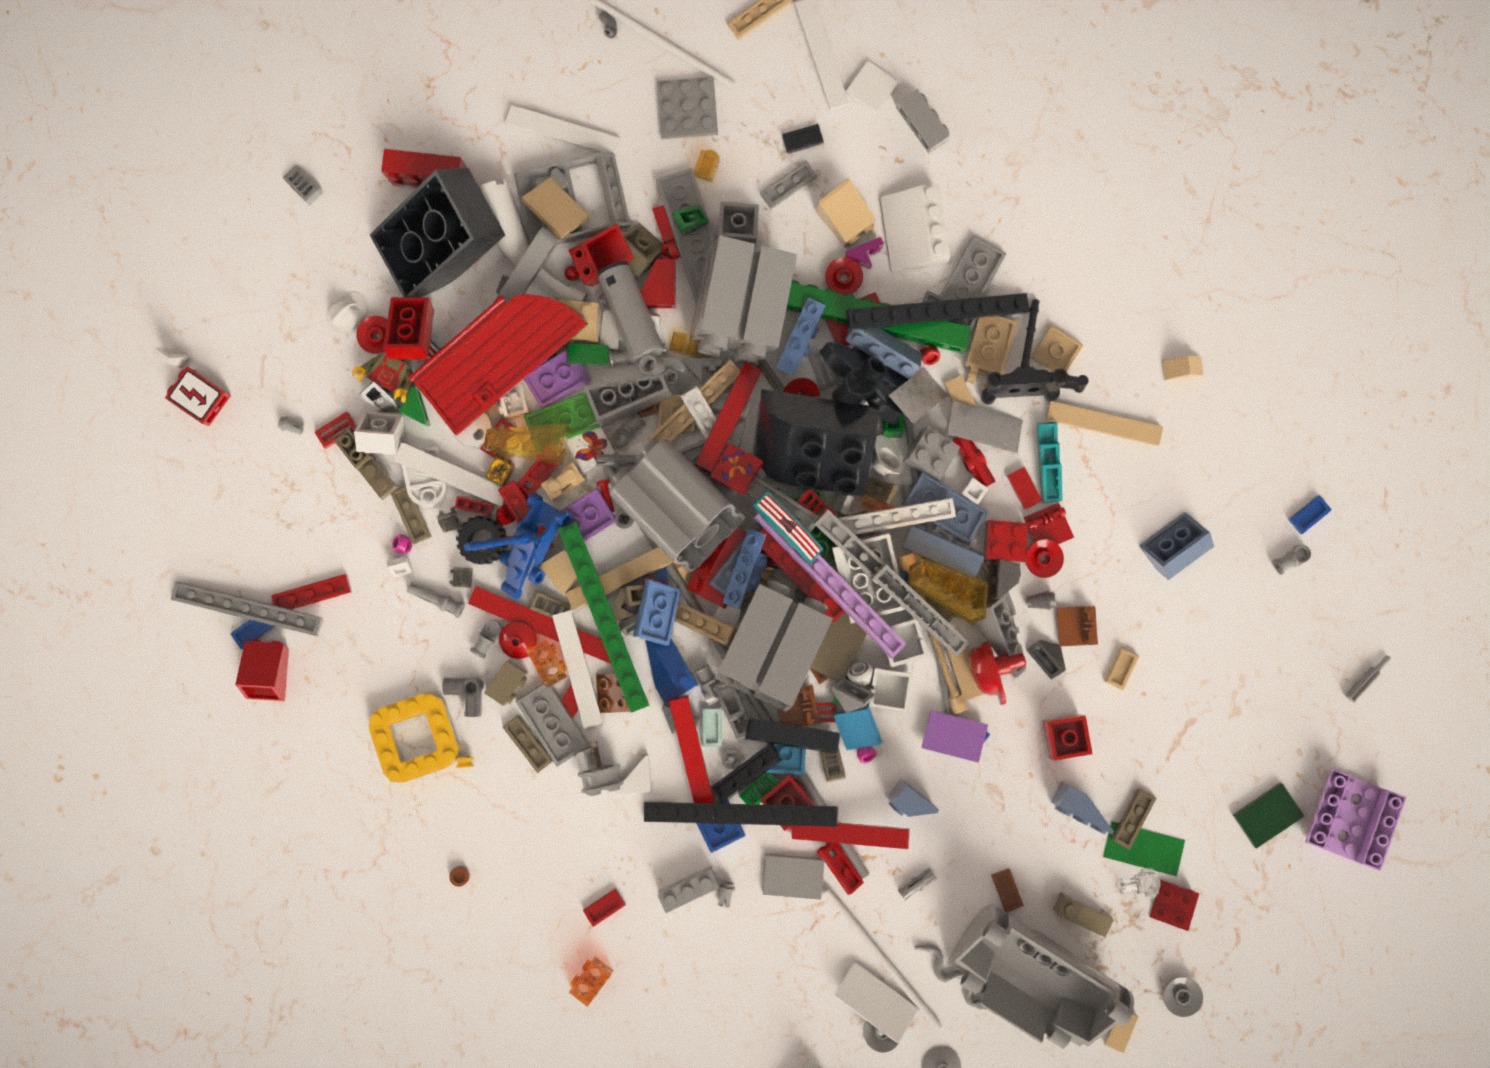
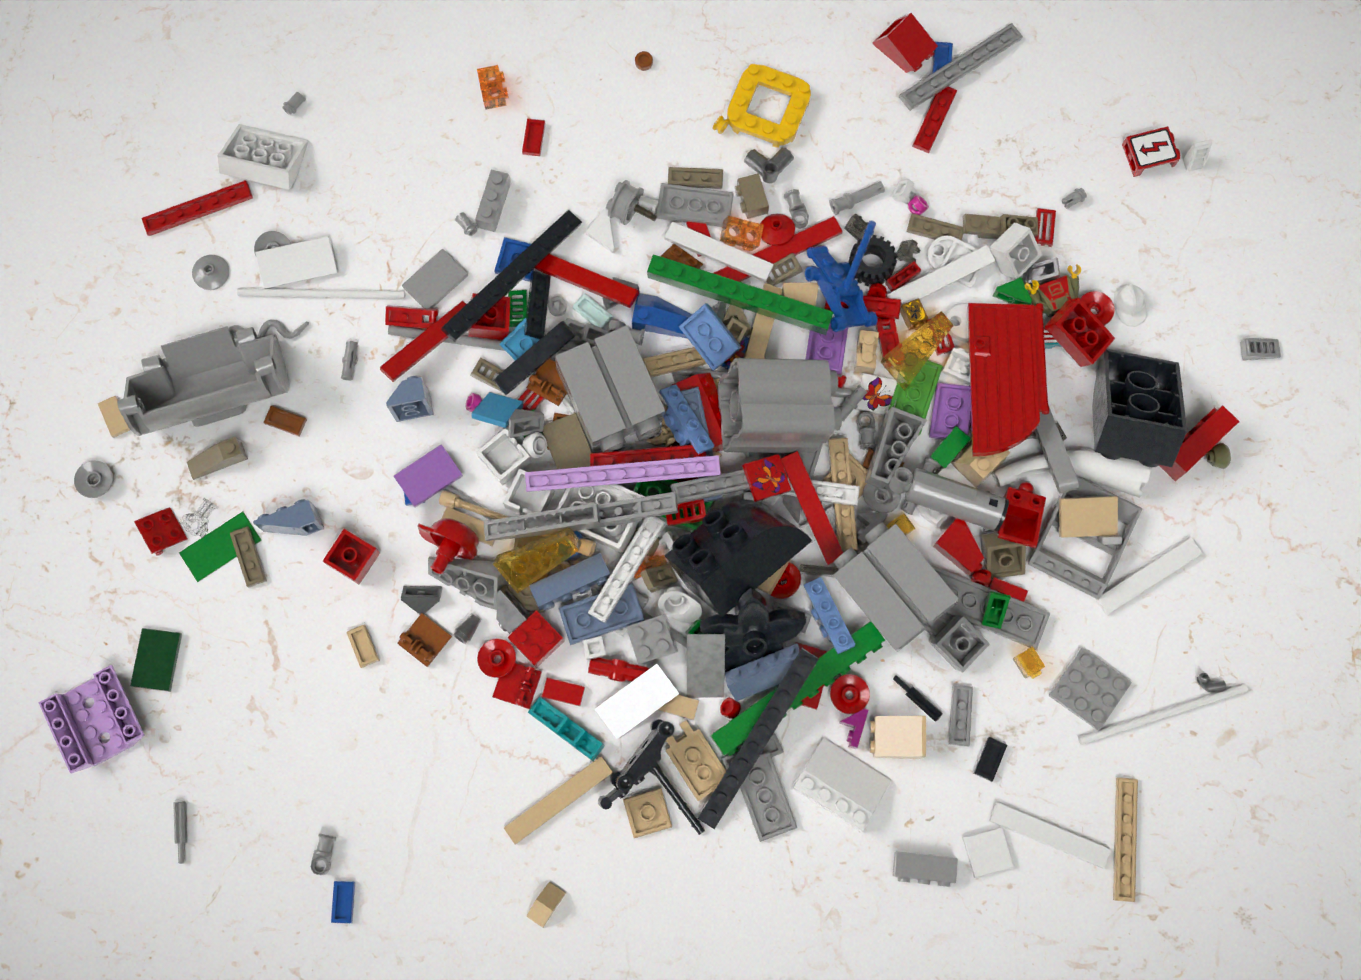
camera: 130 degrees right, 10 degrees down
(422, 145) = (1219, 456): none -> olive cone
(787, 526) = (689, 470): slope -> none
(803, 221) = (919, 700): none -> black axle
(1177, 545) = (414, 770): sand blue slope -> none

